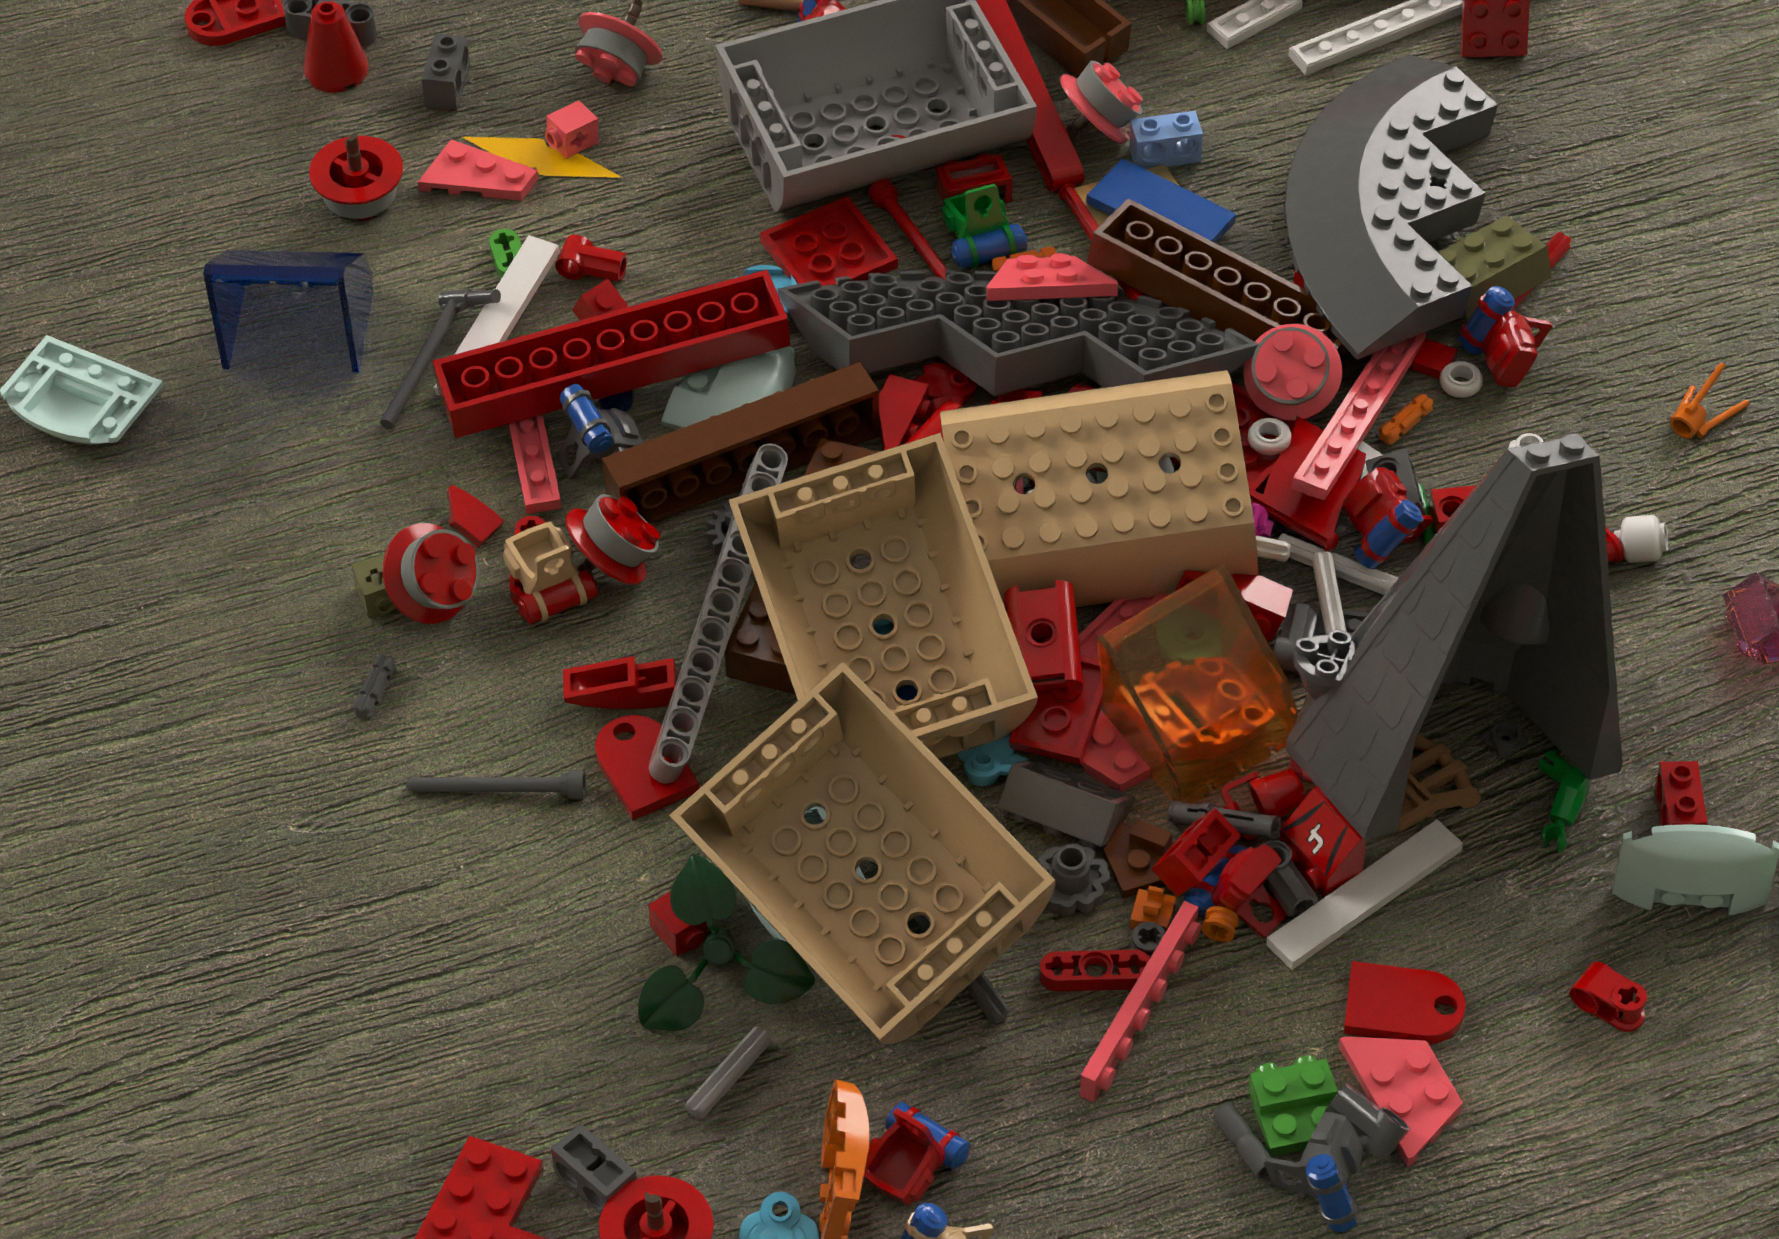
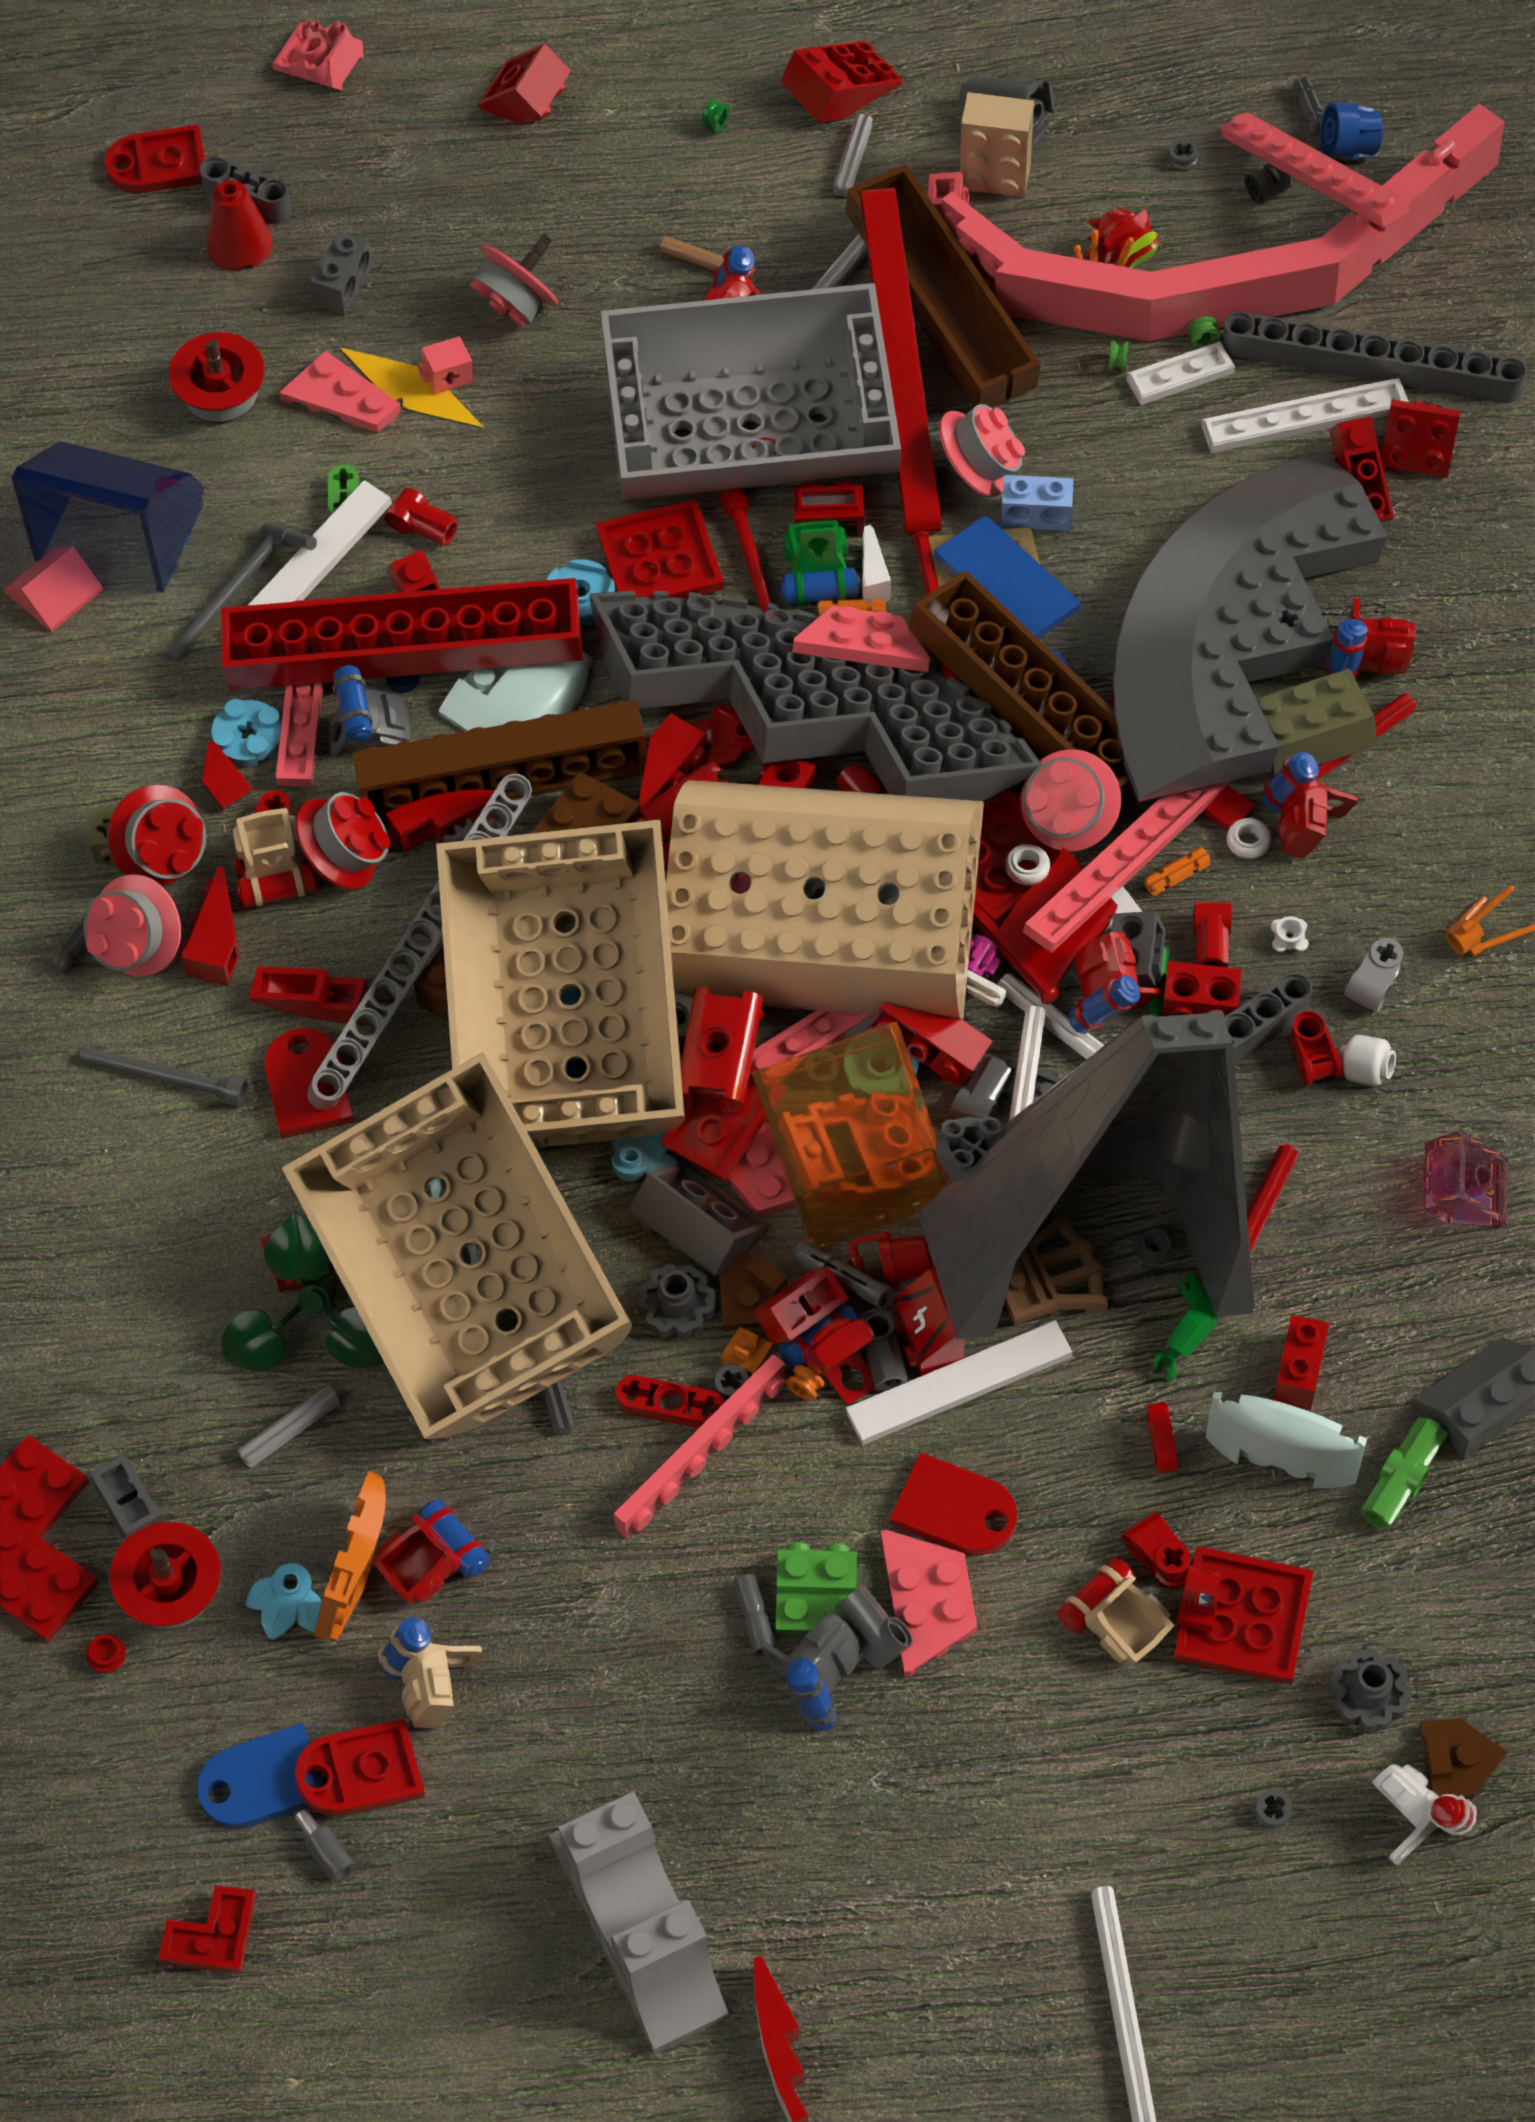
camera: 15 degrees right, 10 degrees up
(252, 385) = (55, 587): none -> coral slope
(433, 655) = (133, 926): none -> coral piece
(488, 458) = (247, 715): none -> medium azure plate
(513, 655) = (213, 945): none -> red slope
(693, 507) = (435, 816): none -> red slope
(1034, 221) = (875, 576): none -> white slope
(1440, 41) = (1358, 453): none -> red slope
(1458, 458) = (1212, 926): none -> red piece
(1521, 194) = (1371, 644): none -> red piece
(1575, 899) = (1161, 1437): none -> red beam
(1593, 1057) = (1117, 1612): none -> tan piece
(1623, 463) = (1374, 978): none -> light grey piece
(1670, 1023) = (1199, 1600): none -> red leg
(1710, 1037) = (1255, 1619): none -> red plate

